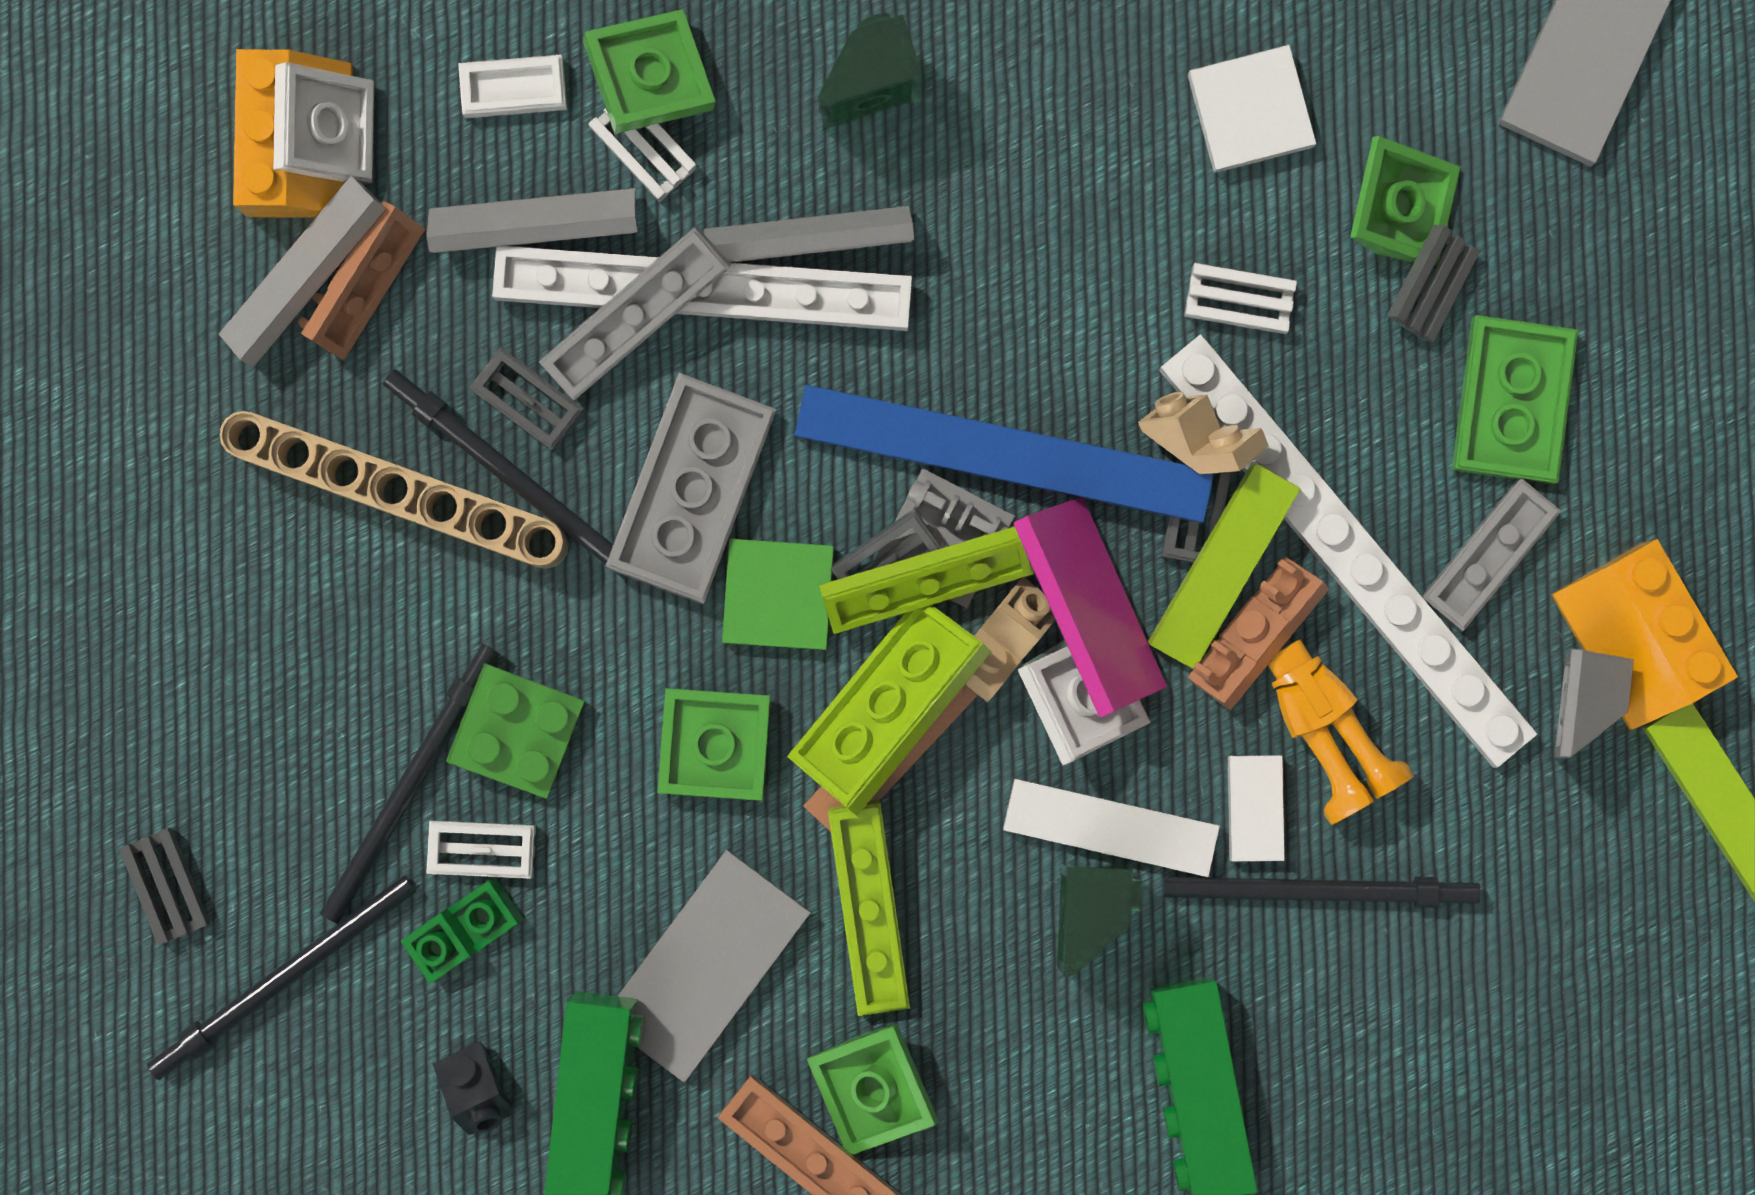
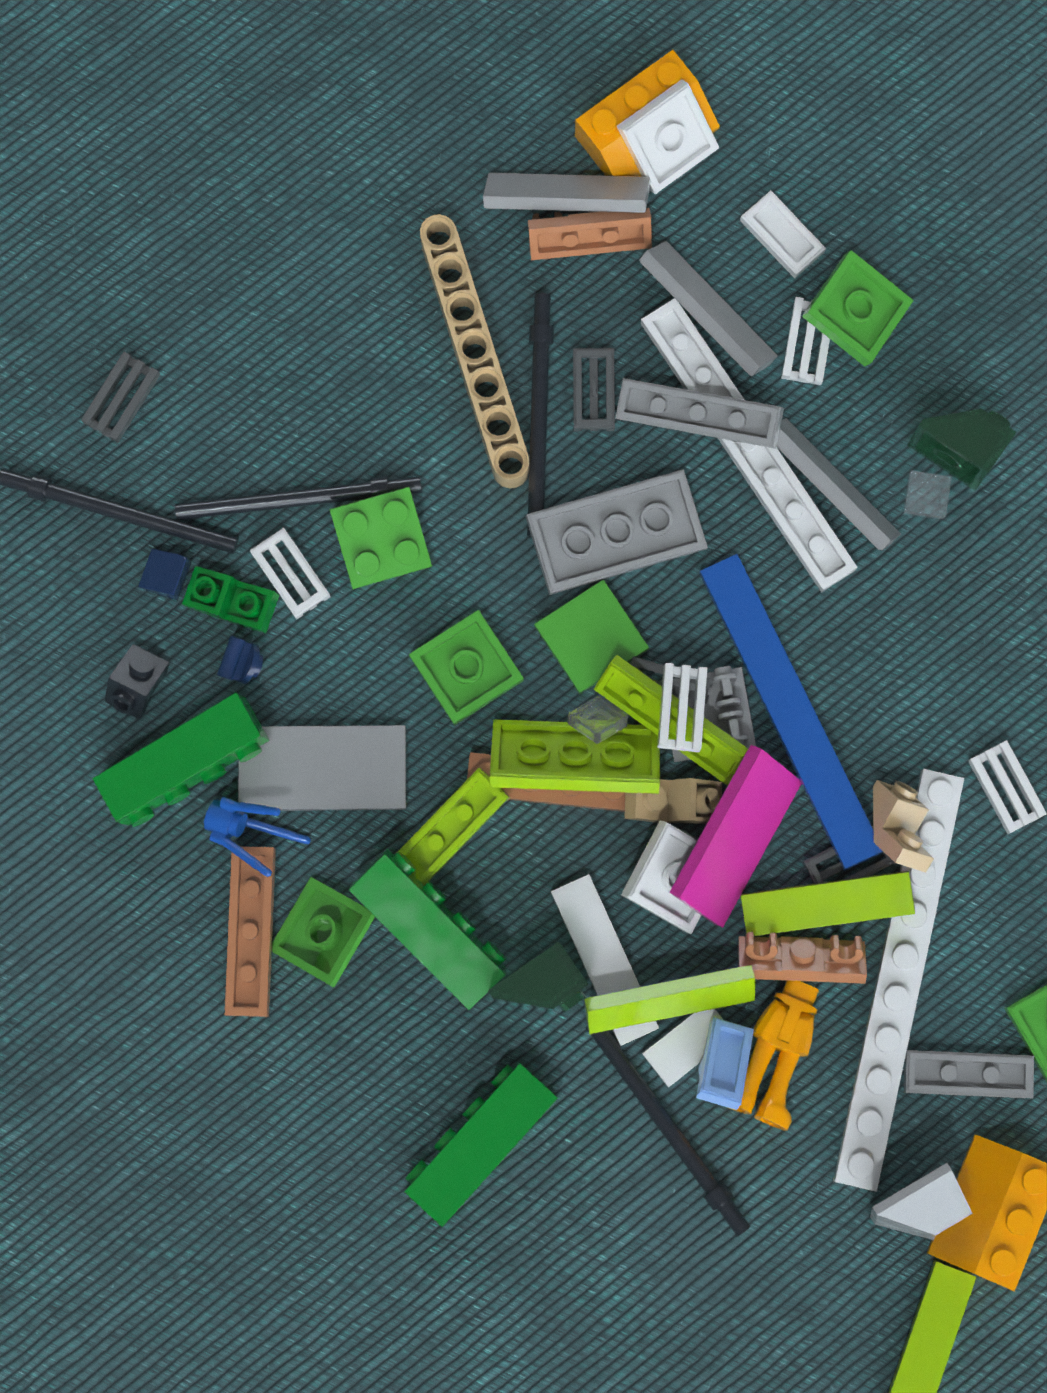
camera: 55 degrees right, 5 degrees down
(384, 977) = (165, 573): none -> dark blue slope
(534, 967) = (240, 661): none -> dark blue plate
(688, 1099) = (227, 819): none -> blue plant
(867, 653) = (597, 719): none -> clear tile
(889, 149) = (927, 494): none -> clear tile
(892, 532) = (685, 673): none -> white tile
(950, 981) = (428, 928): none -> green brick
(1202, 794) = (670, 999): none -> lime tile
(1306, 789) = (724, 1063): none -> light blue tile

